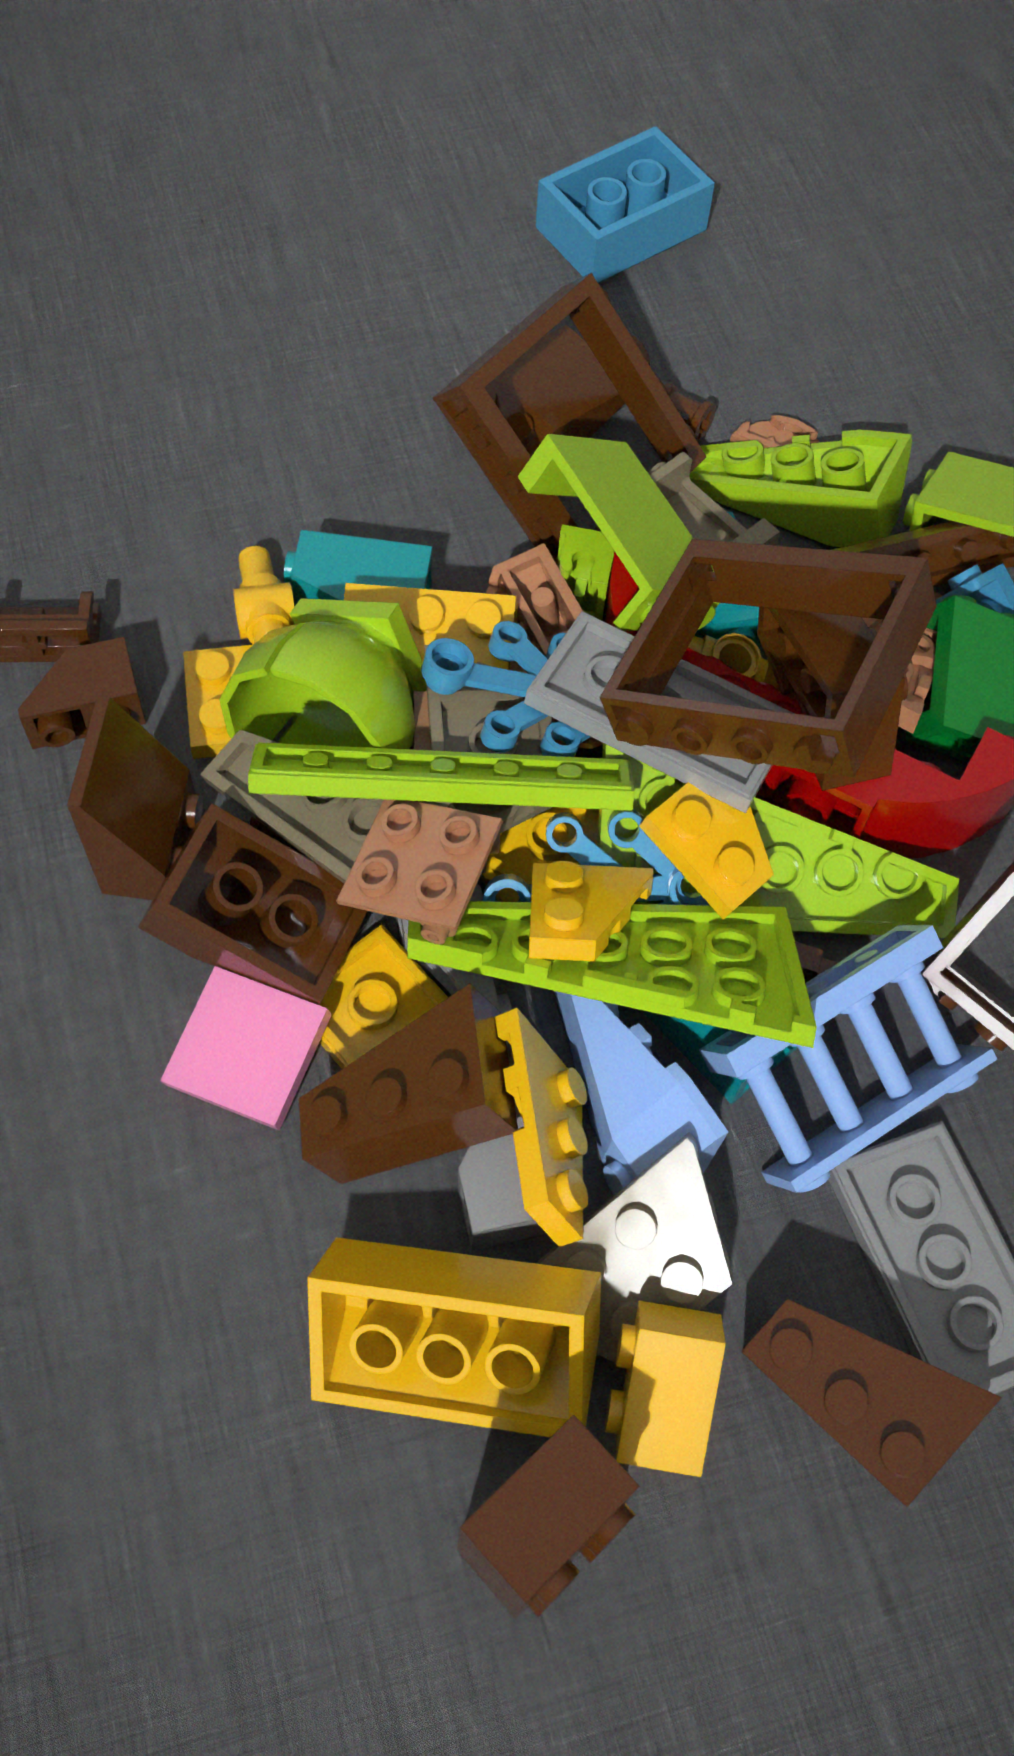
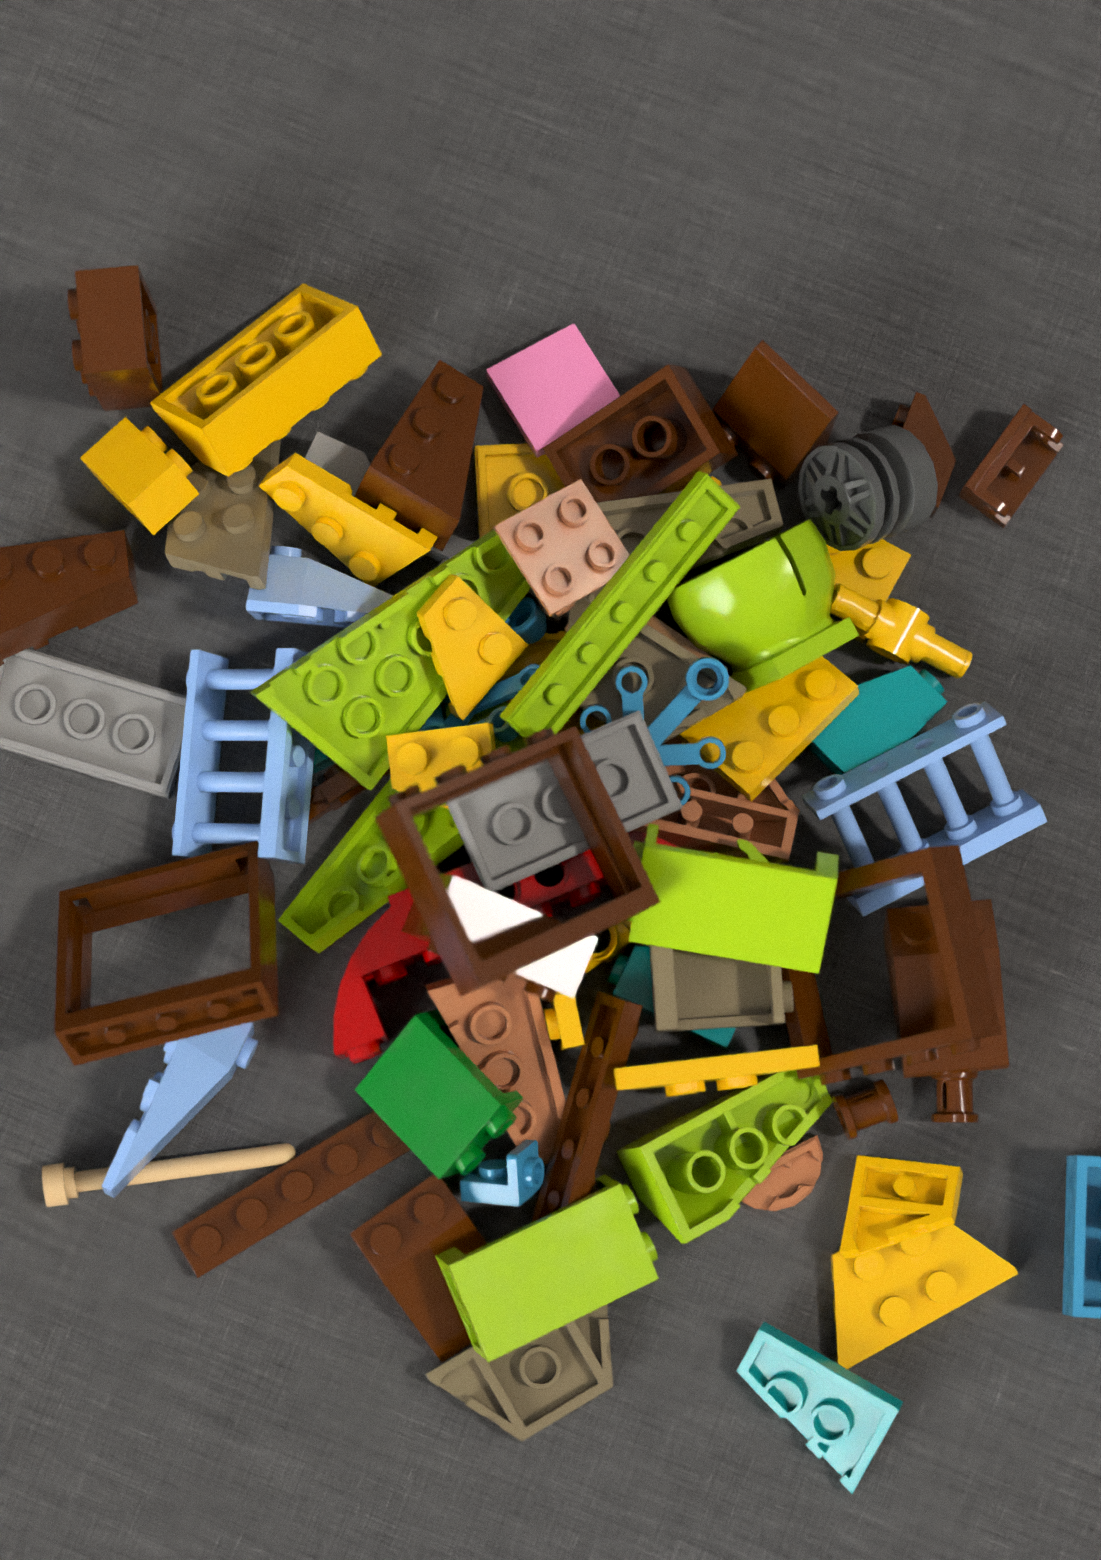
camera: 130 degrees right, 20 degrees up
(158, 677) = (868, 487): none -> dark grey wheel
(401, 495) = (976, 834): none -> light blue fence
(732, 348) = (897, 1202): none -> yellow wing
(759, 489) = (728, 1071): none -> yellow wing
(779, 328) = (907, 1287): none -> yellow wing
(917, 318) = (823, 1400): none -> wing

